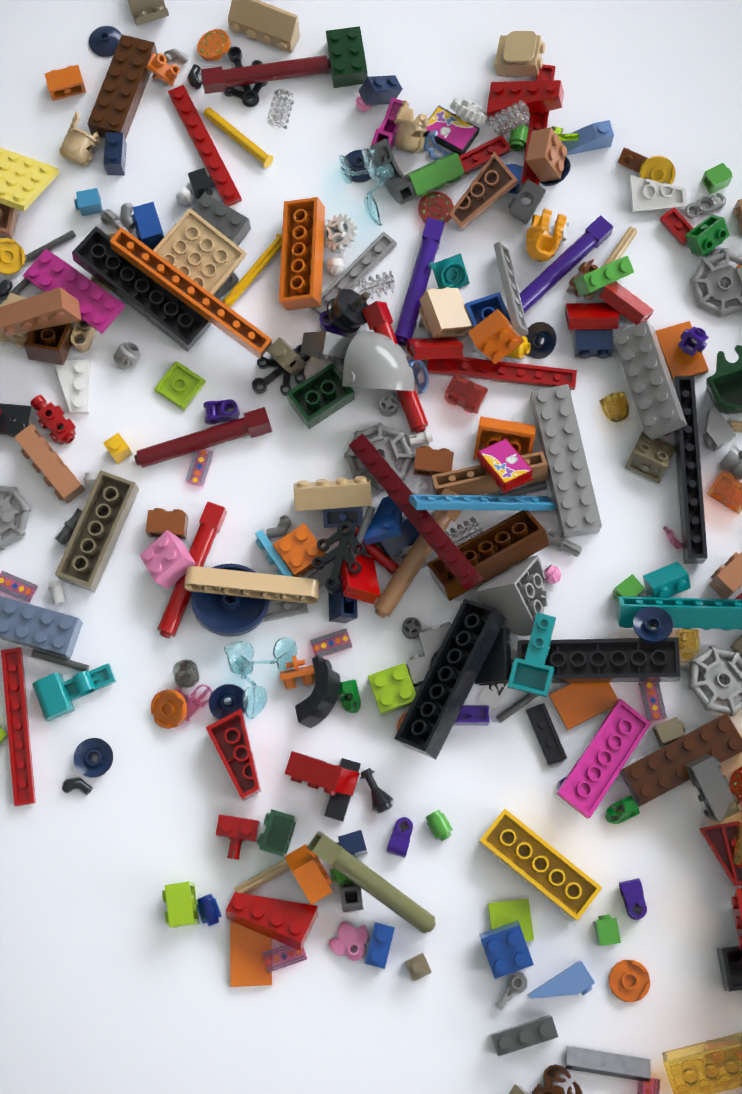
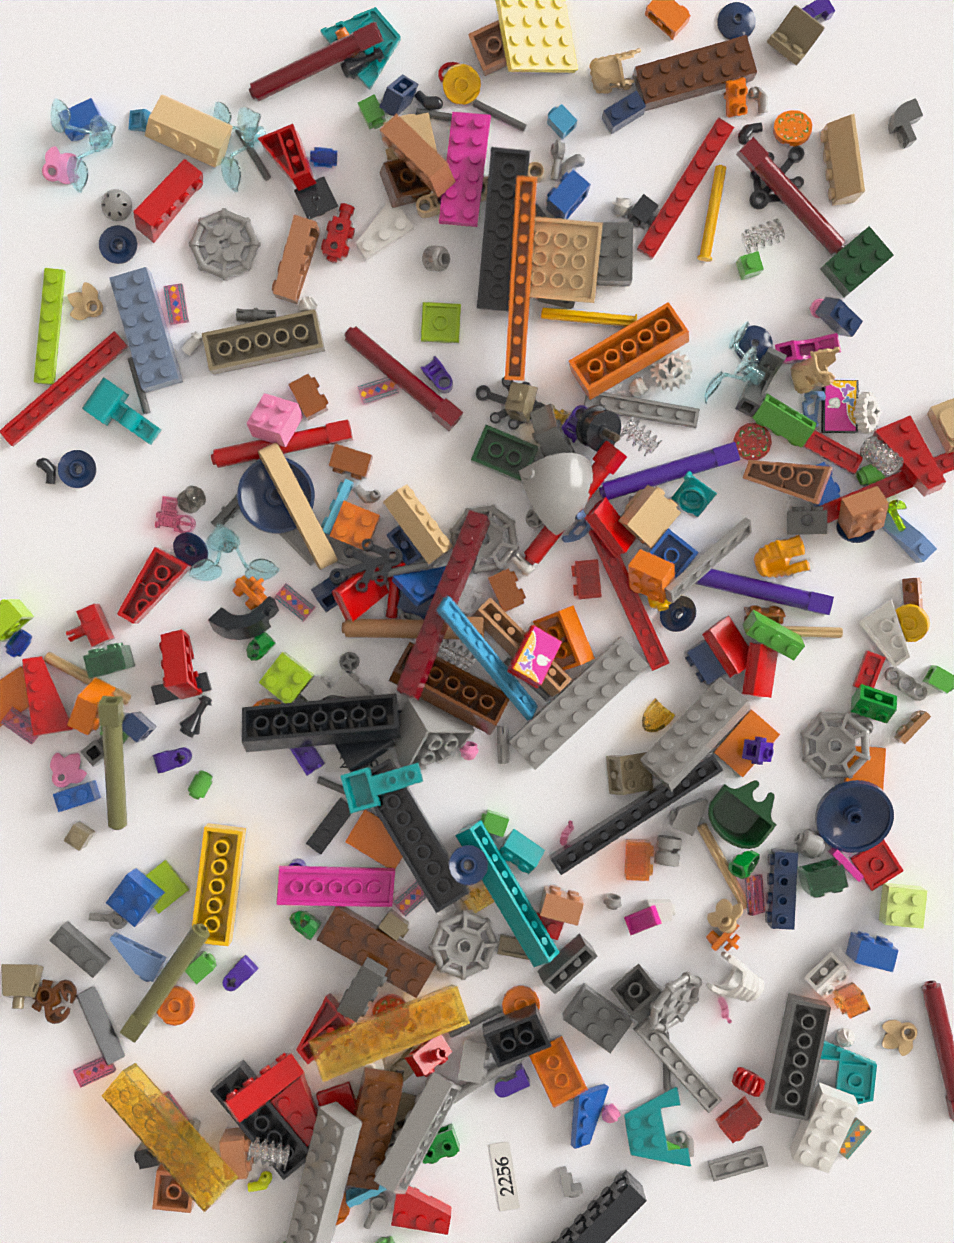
camera: 55 degrees right, 15 degrees up
(117, 448) = (348, 308): yellow brick -> none
(168, 708) = (154, 504): orange tile -> none
(217, 652) = (227, 512): none -> dark grey pin
(243, 523) = (350, 461): none -> dark orange brick
(296, 131) = (749, 265): none -> bright green brick
(602, 968) = (165, 982): none -> olive brick

